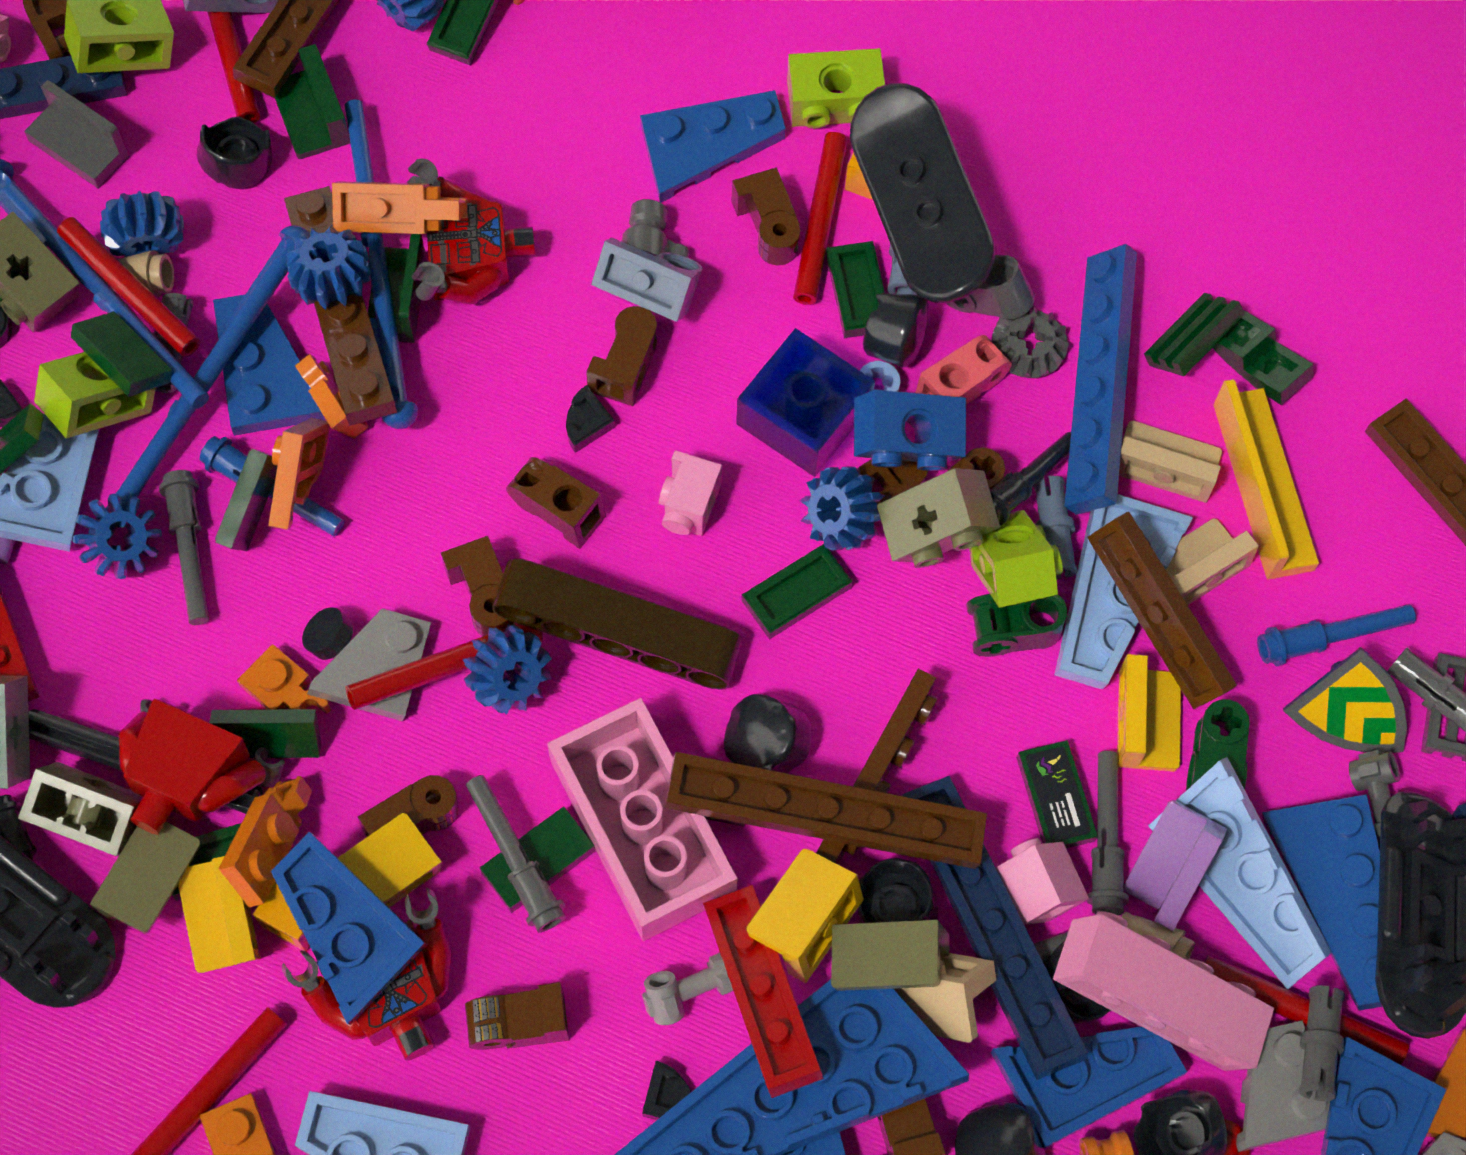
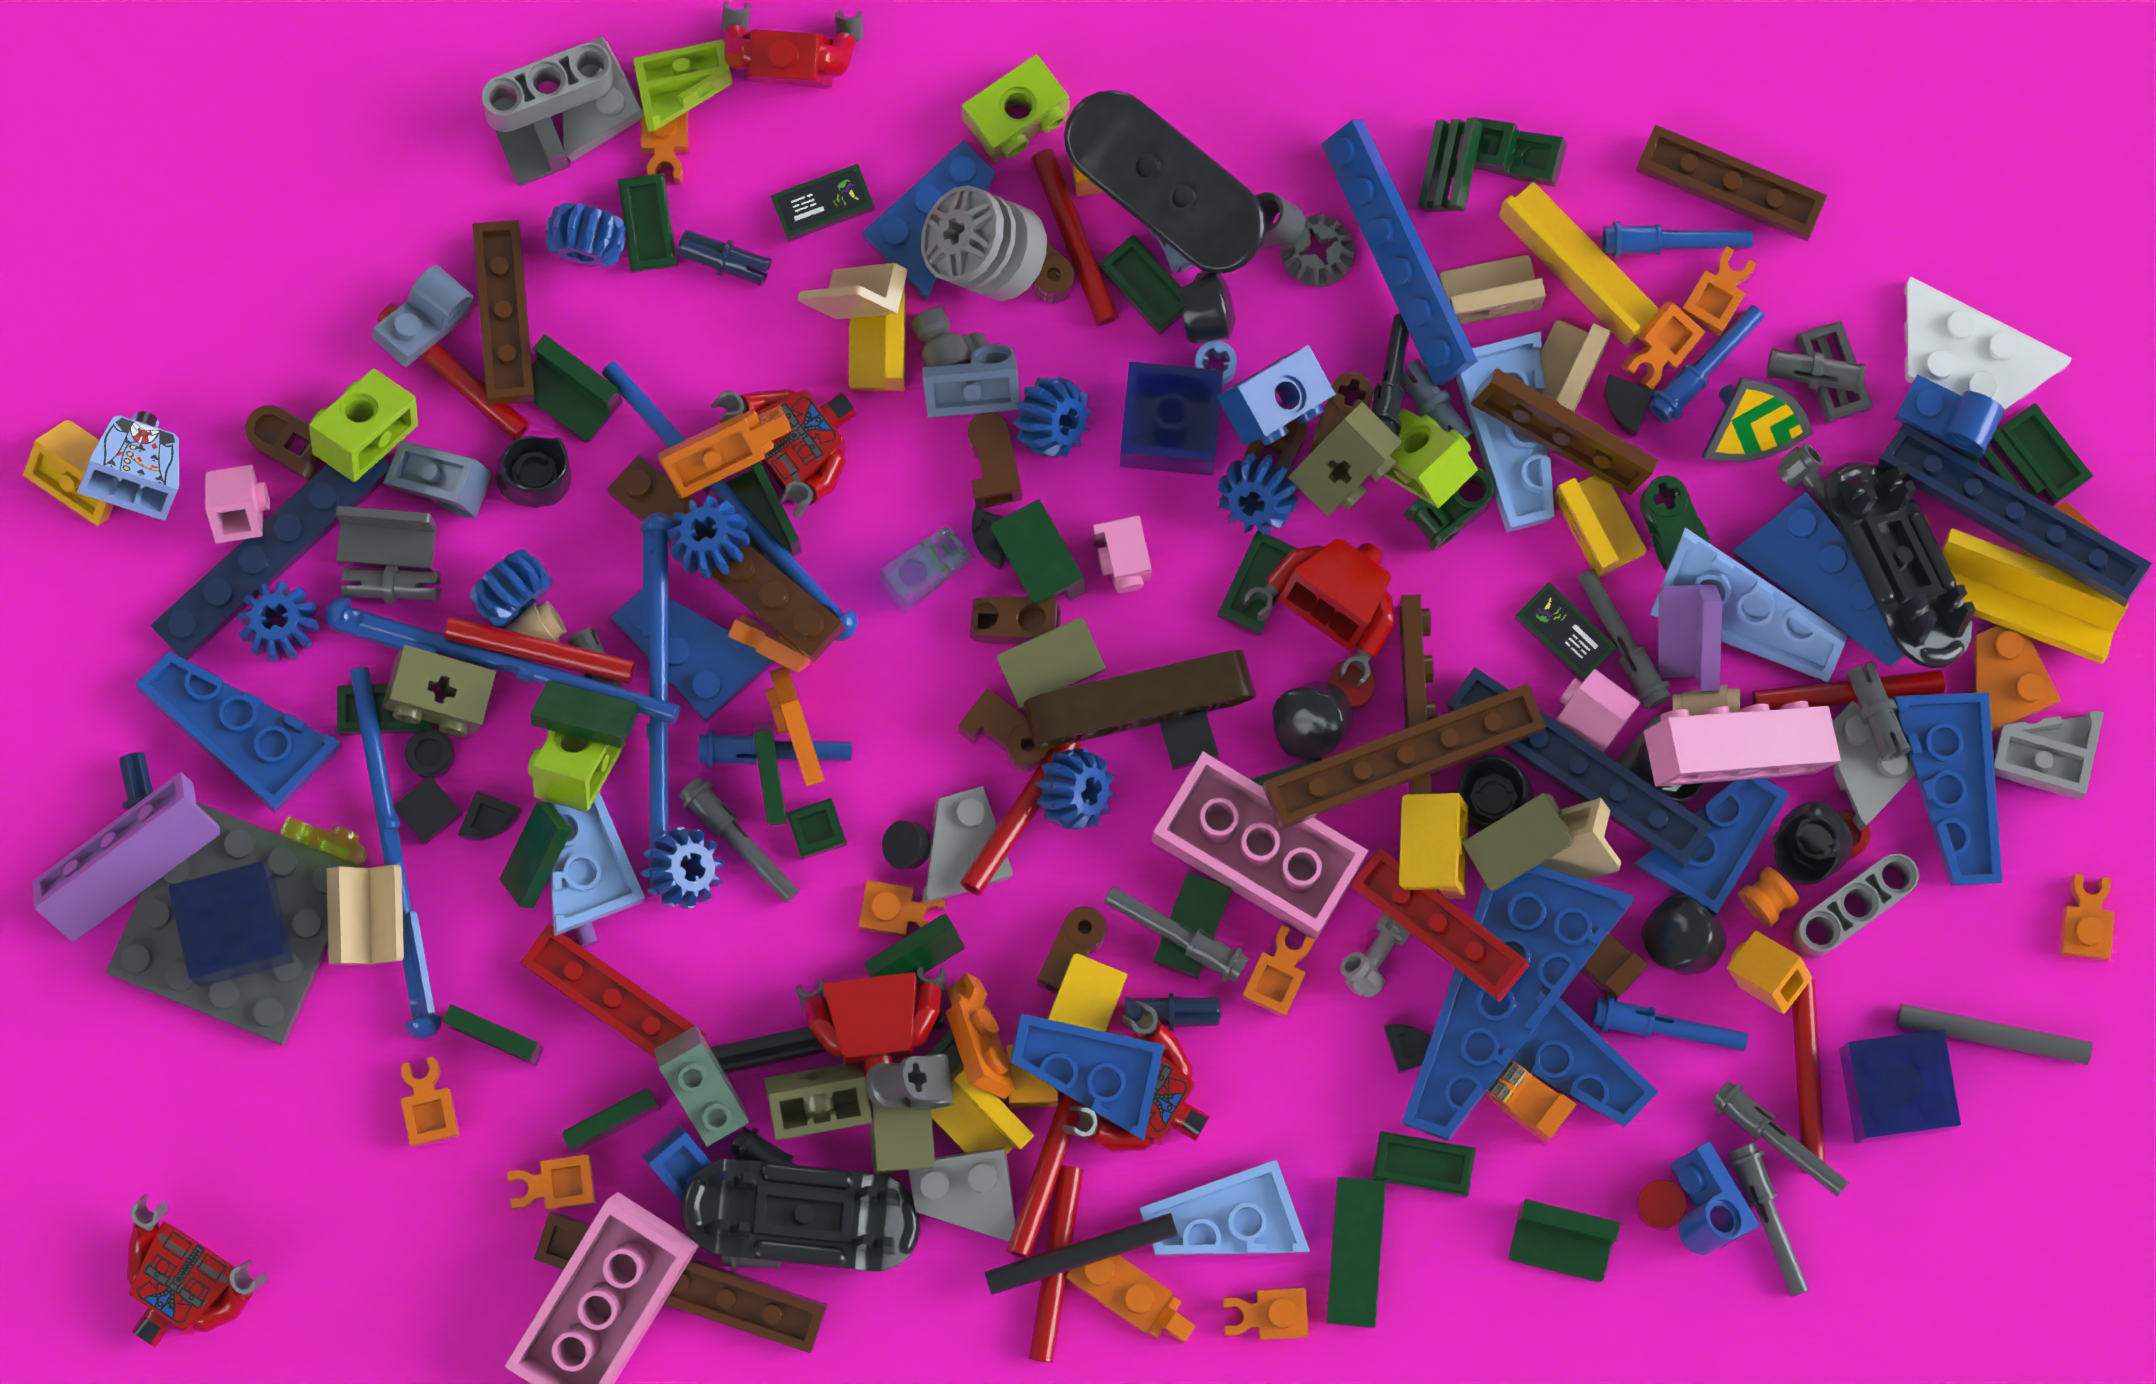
camera: 30 degrees left, 10 degrees up
(53, 174) = (391, 584): none -> dark grey pin
(155, 114) = (441, 476): none -> sand blue plate
(167, 981) = (968, 1192): none -> light grey wing
(169, 836) = (912, 1083): none -> dark grey piece
(224, 1100) = (1081, 1253): none -> black piece
(233, 1014) = (1043, 1179): none -> red piece
(262, 576) = (816, 828): none -> dark green tile
(470, 929) = (1178, 1011): none -> dark blue axle
(507, 409) = (924, 568): none -> clear light blue leg
(511, 74) = (724, 257): none -> dark blue axle
(517, 1019) = (1260, 1057): reddish brown leg -> none
(562, 543) = (1051, 661): none -> olive panel
(581, 954) = (1276, 978): none -> orange plate
(595, 153) = (859, 292): none -> tan panel
(596, 209) = (878, 351): none -> yellow panel
(611, 449) = (1038, 554): none -> dark green panel
(623, 77) = (822, 202): none -> tile
(645, 682) = (1187, 739): none -> black tile
(700, 342) = (1052, 416): none -> blue gear
(732, 166) = (983, 243): none -> light grey wheel
(829, 727) = (1357, 696): none -> red tile
(858, 633) = (1336, 592): none -> red torso
(966, 371) = (1283, 316): coral leg -> none
(1238, 625) = (1626, 403): none -> black tile
(1308, 590) = (1666, 340): none -> orange plate
(1346, 496) = (1652, 239): none -> blue pin
(1380, 578) = (1716, 296): none -> orange plate

